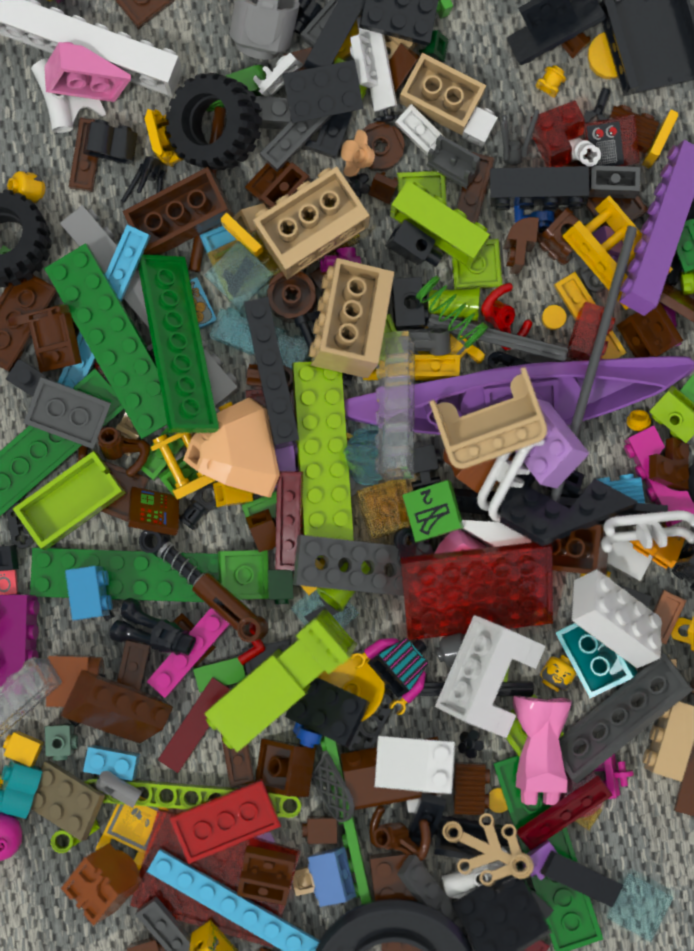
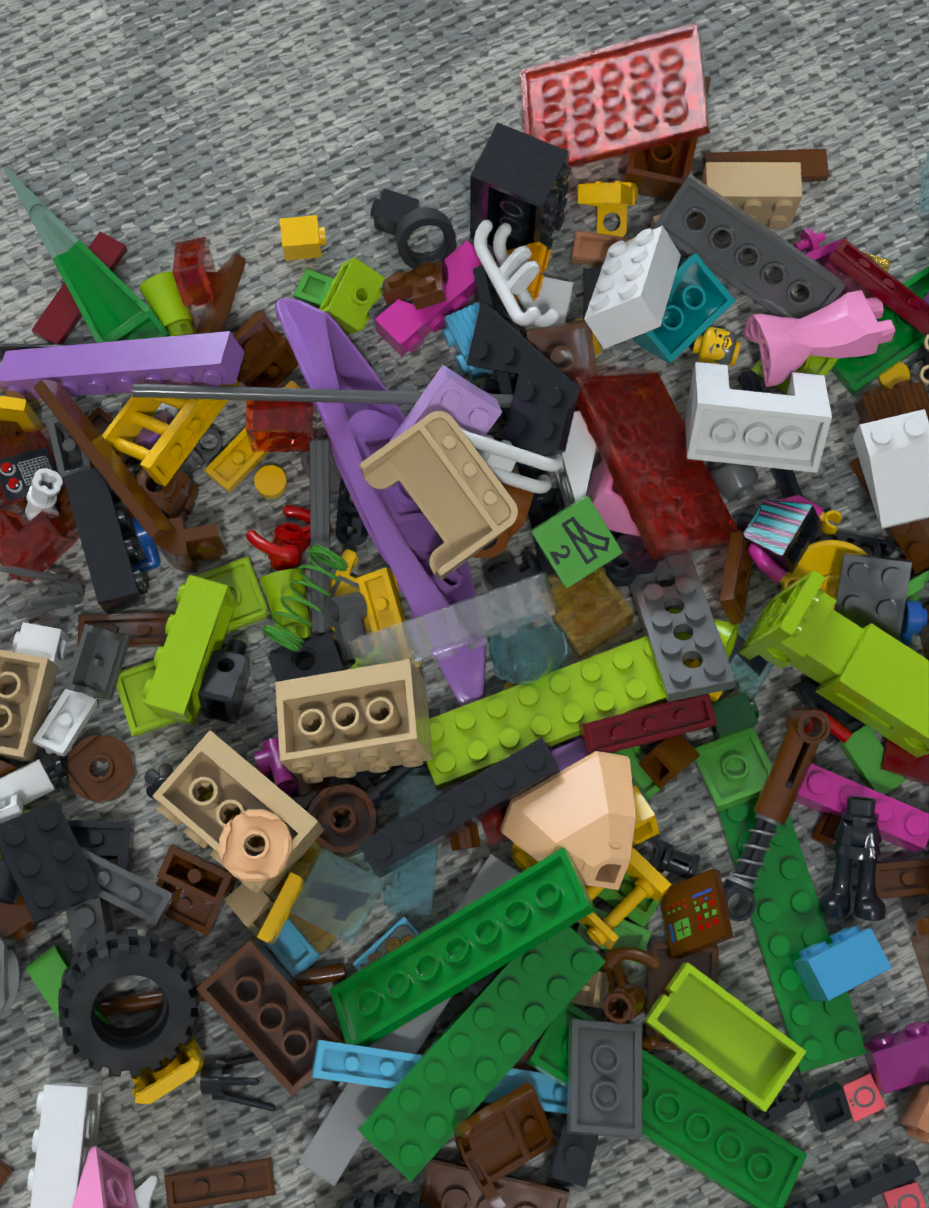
camera: 105 degrees left, 10 degrees down
(110, 142) = (195, 1152): black brick -> none
(274, 79) = (21, 926): white plate -> none
(281, 238) = (273, 858): none -> light nougat tile
(357, 154) = (120, 794): light nougat plate -> none
(374, 619) = (736, 578): none -> reddish brown tile
(383, 187) = (157, 745): reddish brown tile -> none
(471, 743) = (841, 426): black plant -> none
(593, 197) = (104, 459): none -> reddish brown tile
(638, 420) = (372, 343): yellow plate -> none

